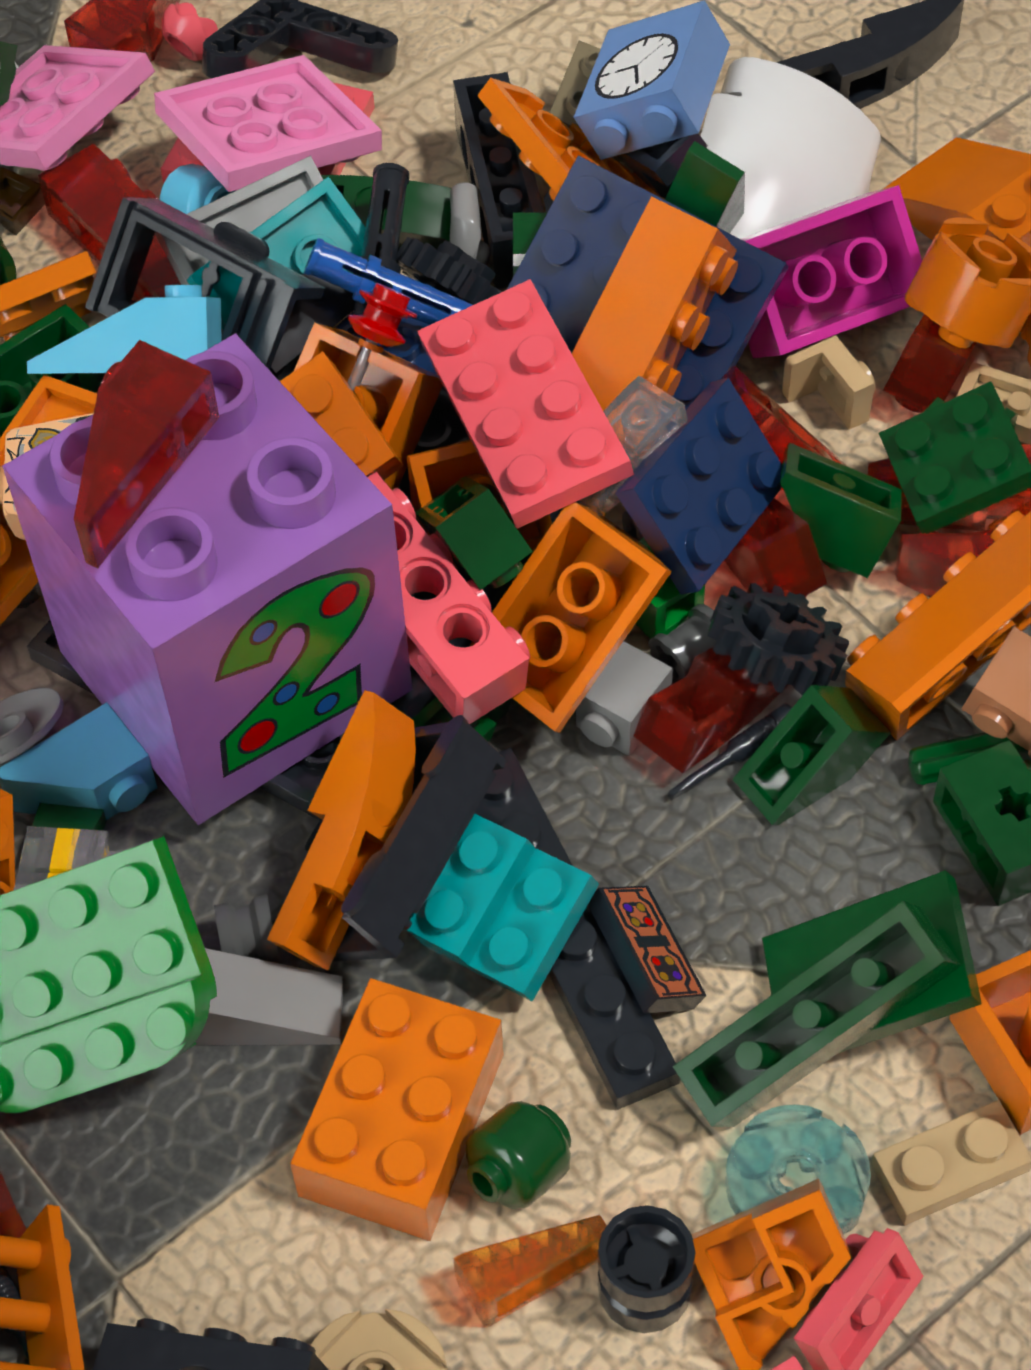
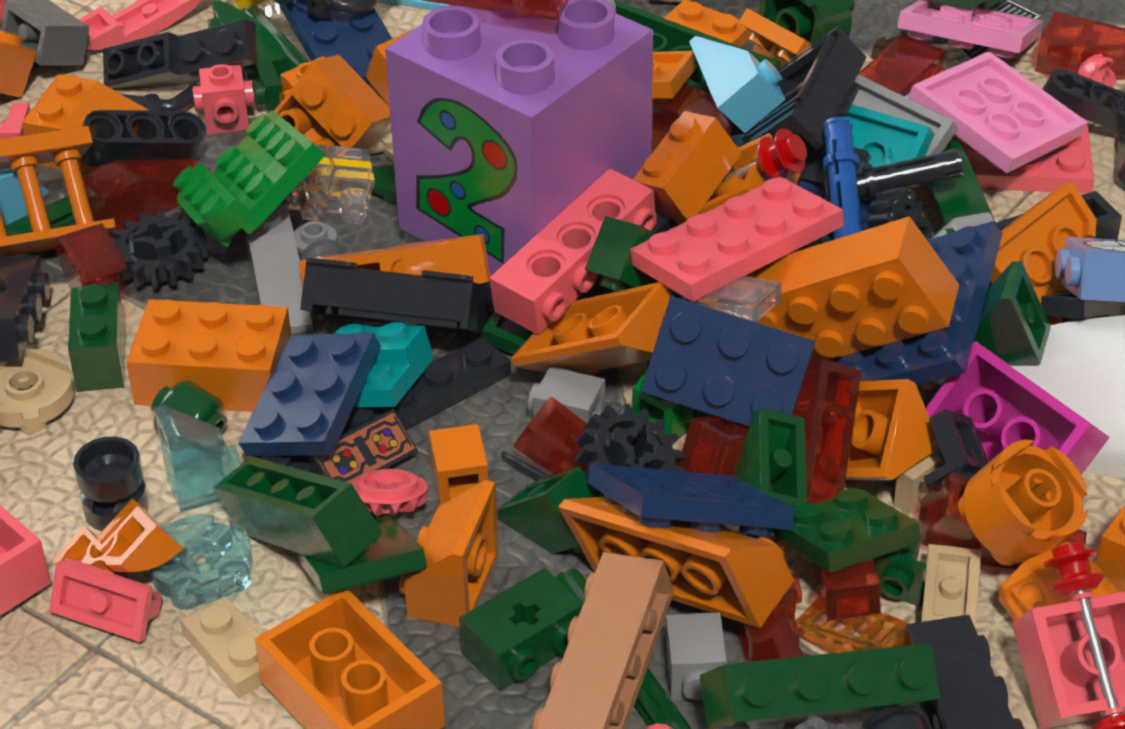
camera: 75 degrees right, 15 degrees down
(86, 1153) = (160, 248): none -> black gear
(148, 1245) = (89, 257): none -> clear red slope
(306, 1261) = (97, 337): none -> dark green brick
(521, 1269) = (98, 418): clear orange slope -> none
(559, 977) = (310, 395): none -> dark blue plate
(633, 1151) = (193, 458): none -> clear light blue slope
(700, 838) = (457, 460): none -> orange brick
(748, 907) = (391, 491): none -> coral gear
(813, 380) = (888, 430): none -> orange slope
(876, 328) = (957, 445): none -> black bracket
(880, 843) = (459, 557): none -> orange slope
(917, 578) = (690, 496): none -> dark blue plate

